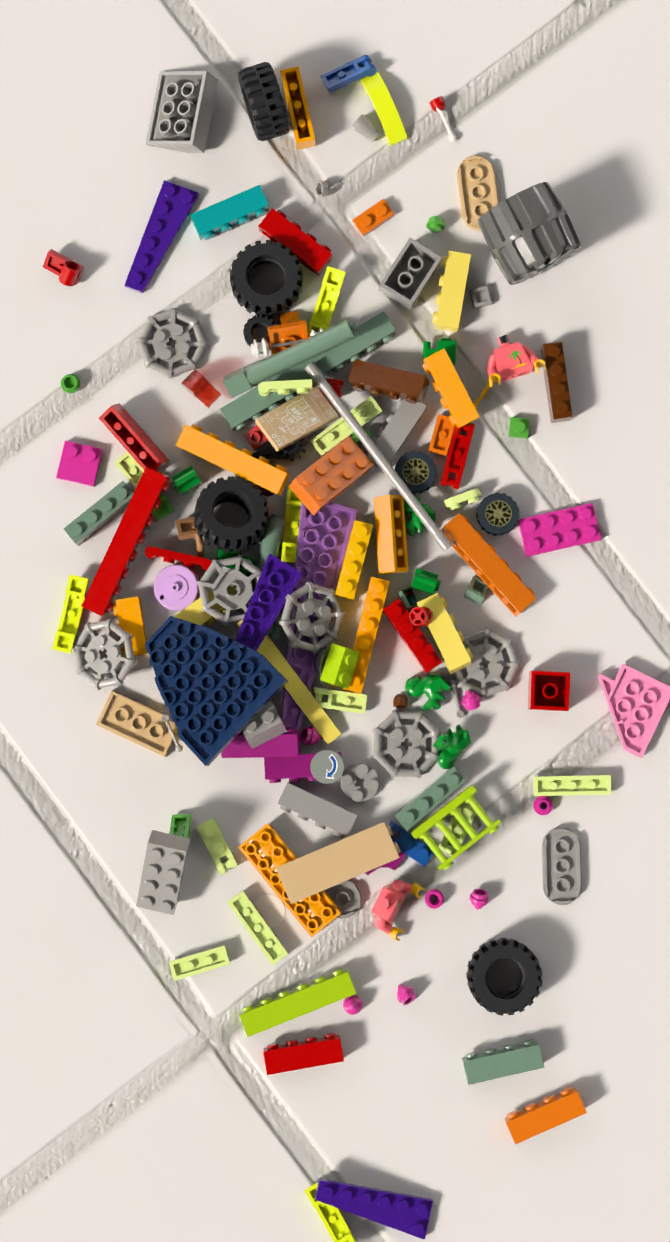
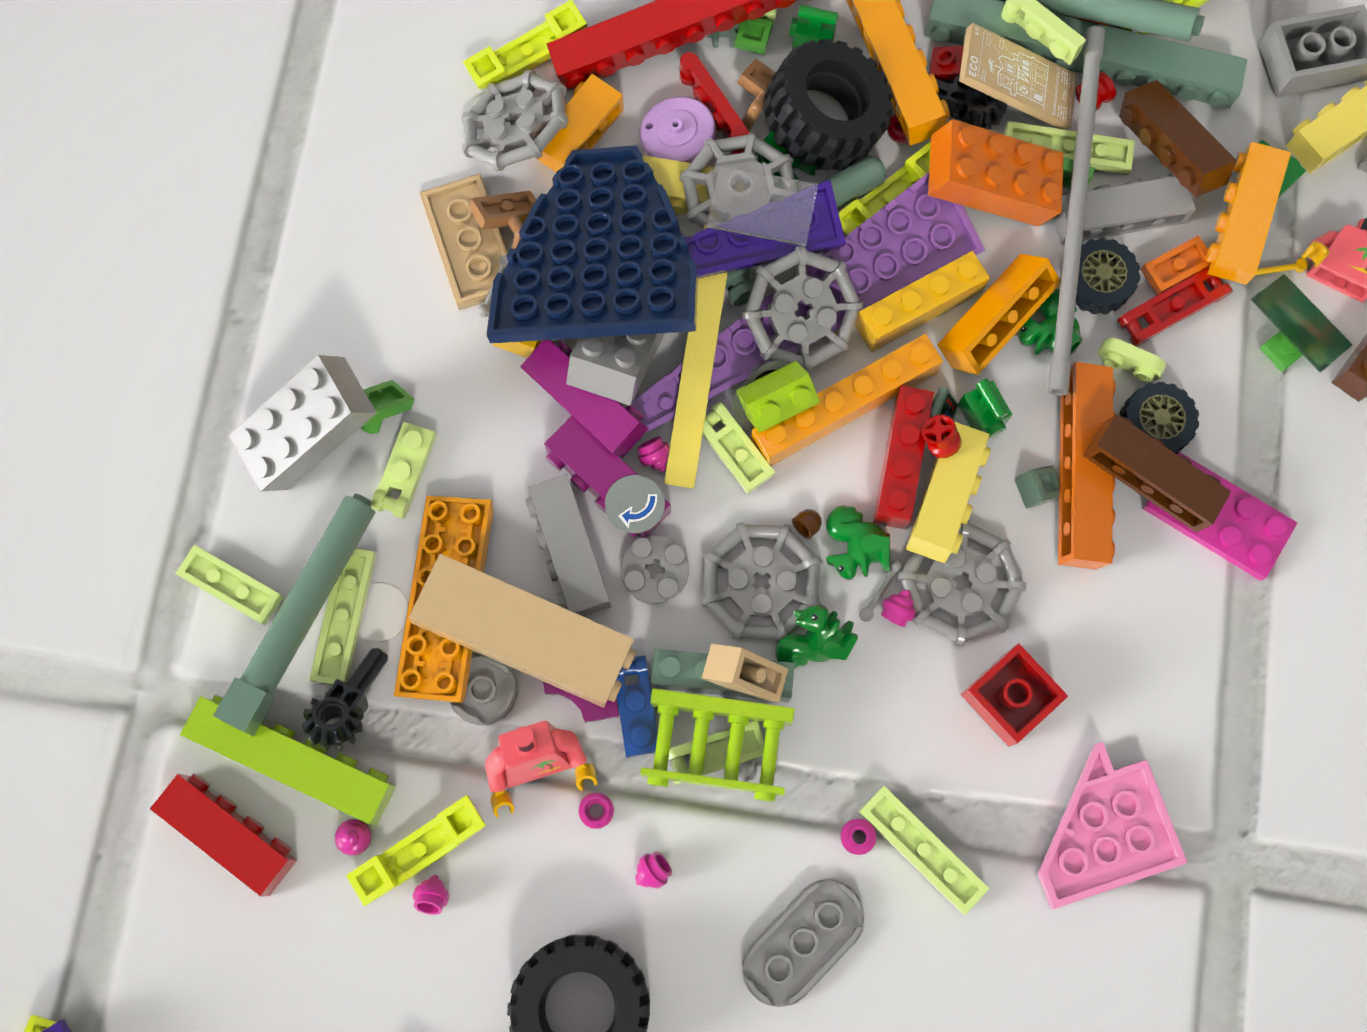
camera: 50 degrees right, 10 degrees down
(145, 695) = (503, 211): none -> medium nougat plate
(243, 946) = (251, 695): none -> sand green brick
(254, 594) = (762, 205): none -> clear piece
(297, 958) = (343, 702): none -> black gear
(382, 984) = (416, 851): none -> neon yellow slope
(440, 792) = (745, 672): none -> tan slope
(515, 410) = (1301, 322): none -> clear green piece
(519, 544) = (1157, 473): none -> reddish brown brick

